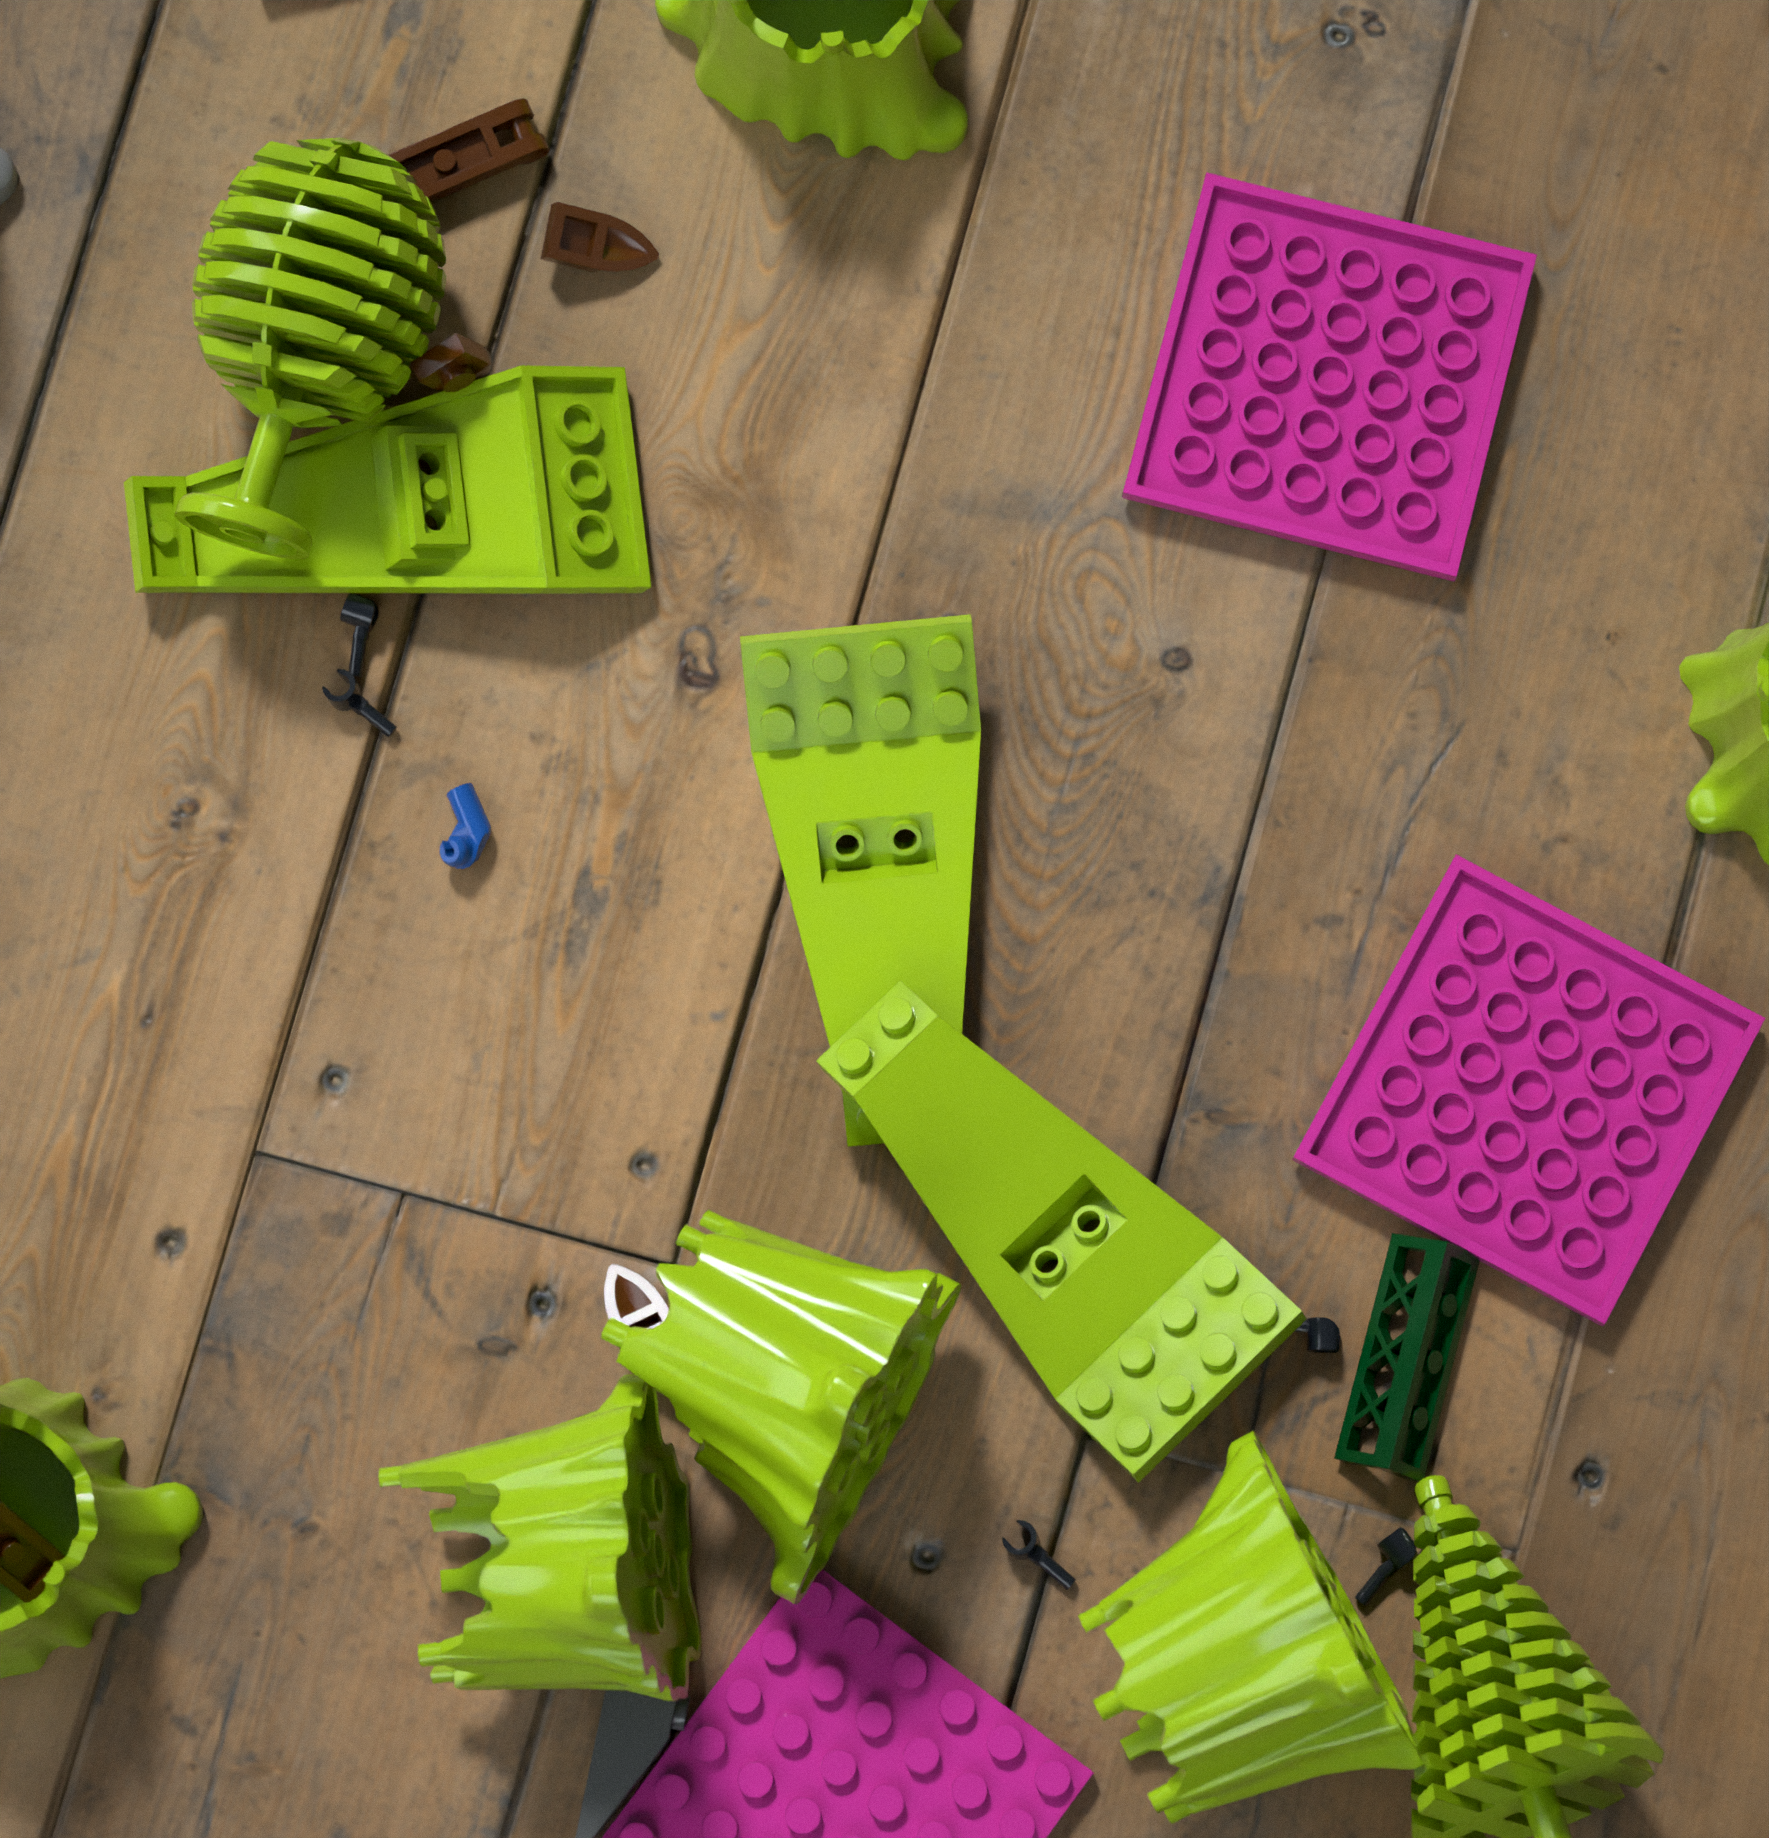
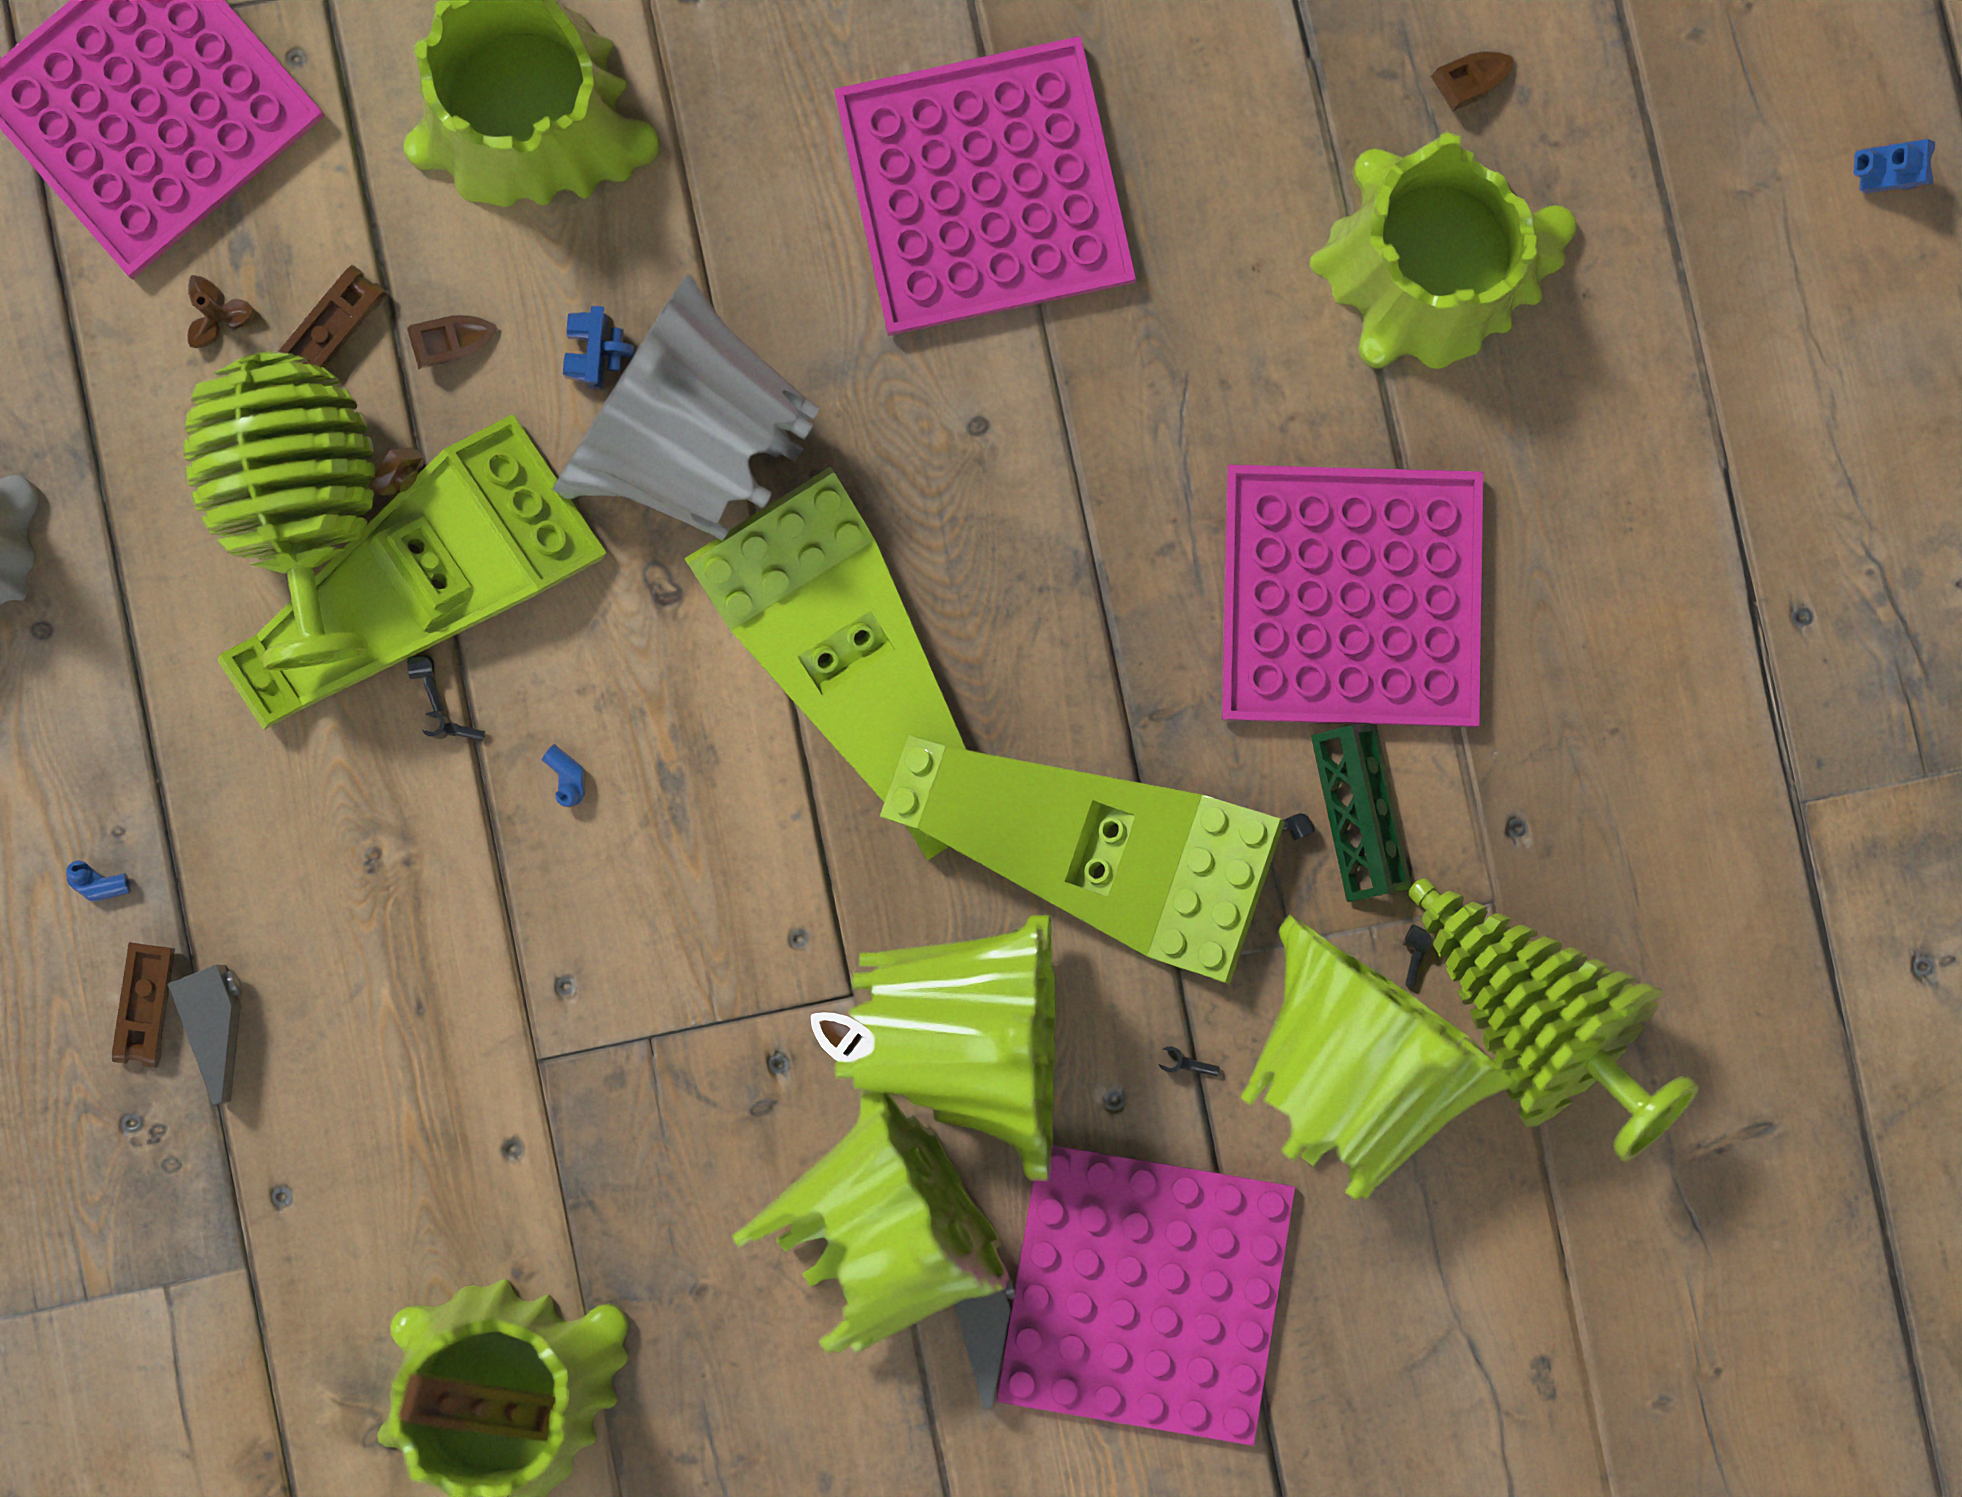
camera: 30 degrees left, 5 degrees up
(332, 52) = (205, 298): none -> reddish brown plant
(773, 314) = (590, 366): none -> blue hips
(826, 470) = (688, 420): none -> light grey piece

